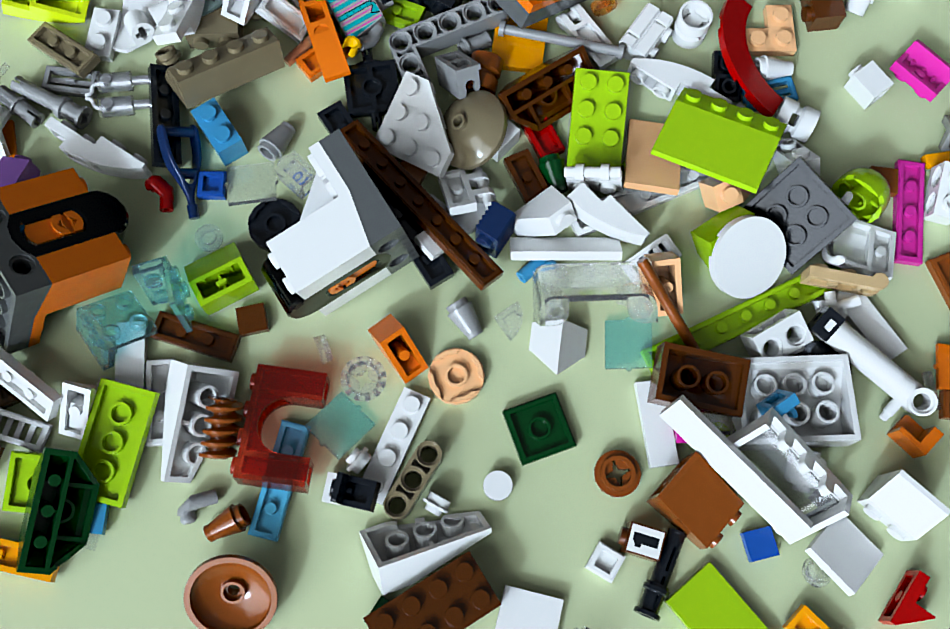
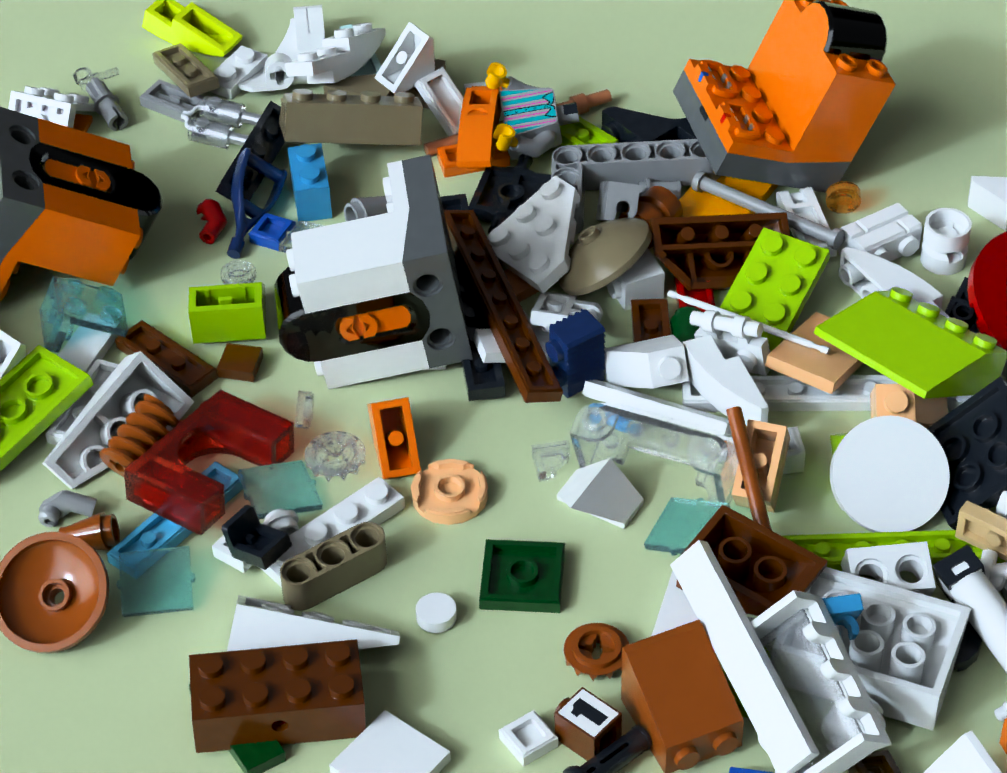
camera: 30 degrees right, 30 degrees down
(62, 107) = (151, 115): light grey pin -> none
(98, 155) = (167, 167): white slope -> none
(163, 285) = (158, 288): clear light blue bracket -> none
(295, 543) = (156, 581): none -> clear light blue piece
(436, 504) = (348, 601): white plate -> none
(465, 317) = (493, 433): light grey cone -> none
(596, 153) = (766, 328): none -> white piece

